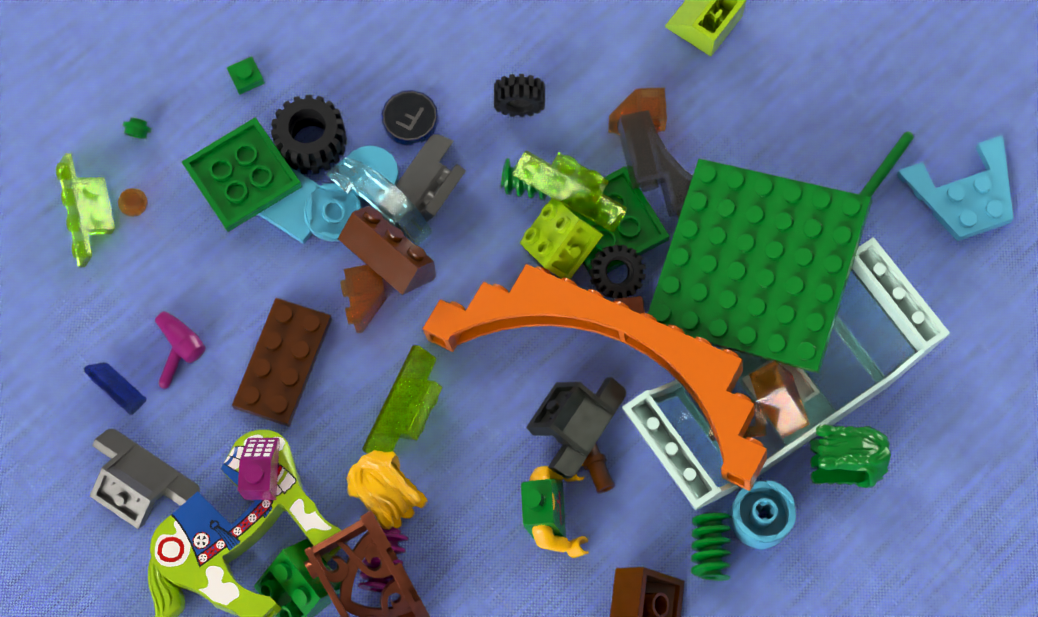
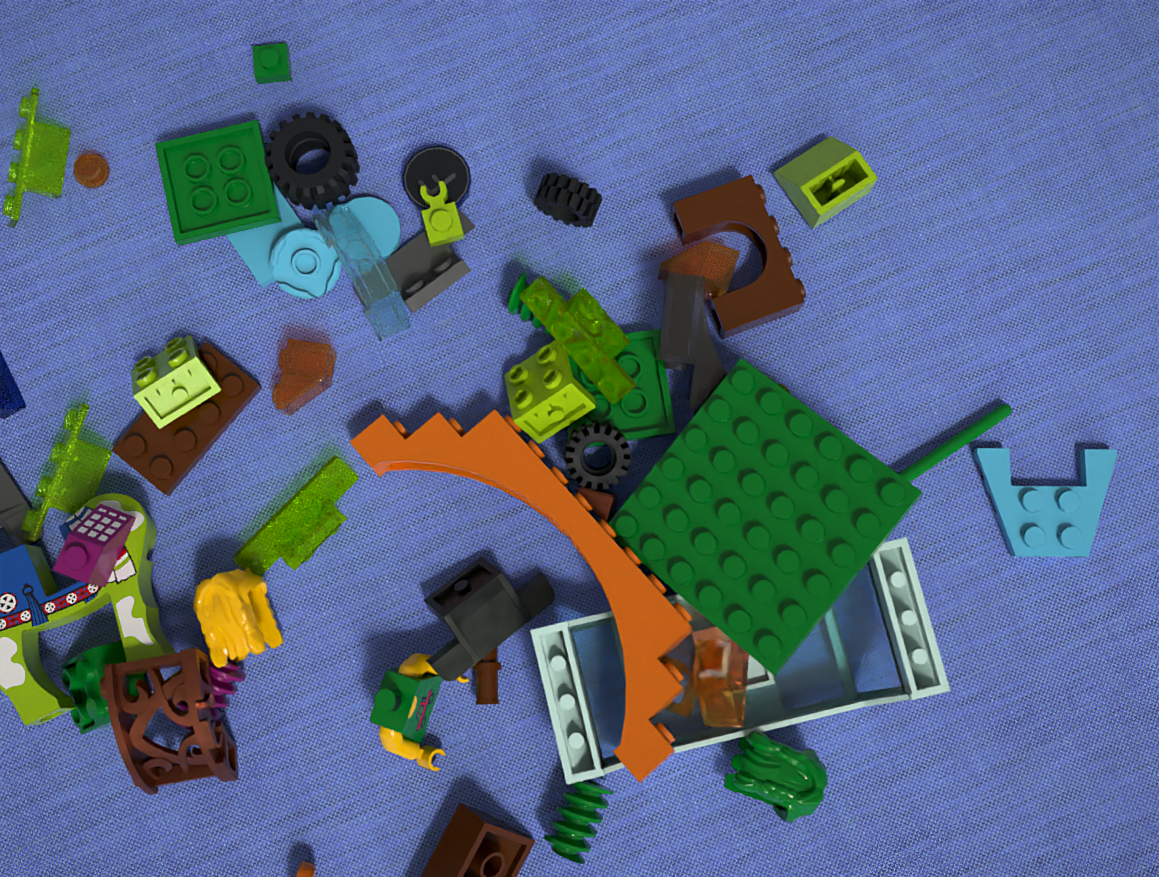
camera: 20 degrees right, 10 degrees up
(136, 128) = (125, 84): green plate -> none
(184, 345) = (85, 354): magenta piece -> none
(208, 434) = (73, 476): none -> clear neon green bracket
(264, 332) = (172, 381): none -> lime bracket
(387, 250) = (341, 336): reddish brown slope -> none
(425, 144) = (441, 219): none -> lime plate
(652, 59) = (741, 210): none -> reddish brown arch
(771, 529) = (645, 827): medium azure brick -> none

